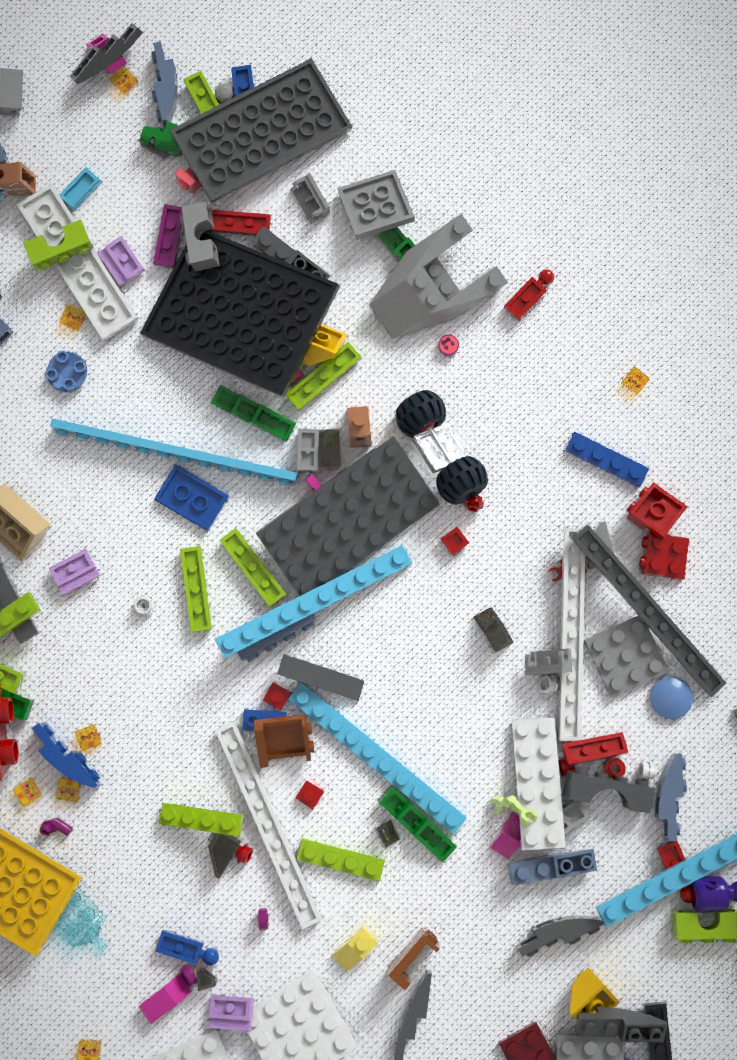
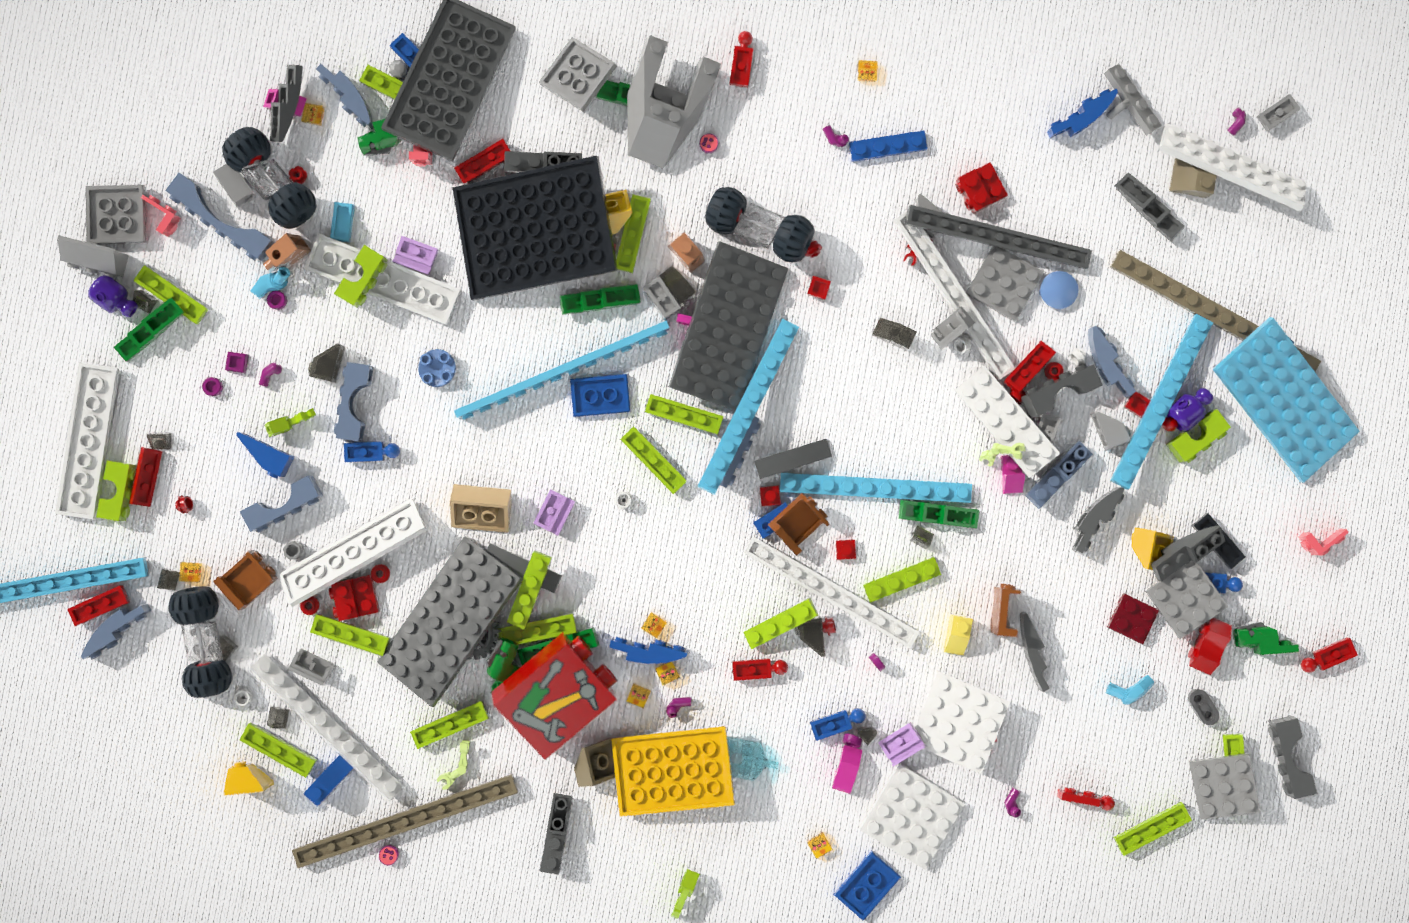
camera: 35 degrees left, 5 degrees up
(44, 138) = (248, 153): none -> black plate
(72, 317) = (410, 324): clear yellow tile -> none
(75, 126) = (298, 170): none -> red plate
(151, 846) = (757, 669): none -> red plate
(168, 237) = (437, 210): magenta plate -> none
(196, 220) = (450, 182): light grey arch -> none
(310, 198) = (523, 104): light grey hinge -> none
(563, 420) = (835, 139): none -> magenta arm
(628, 861) = (1110, 431): none -> light grey slope
(655, 510) = (952, 158): red plate -> none

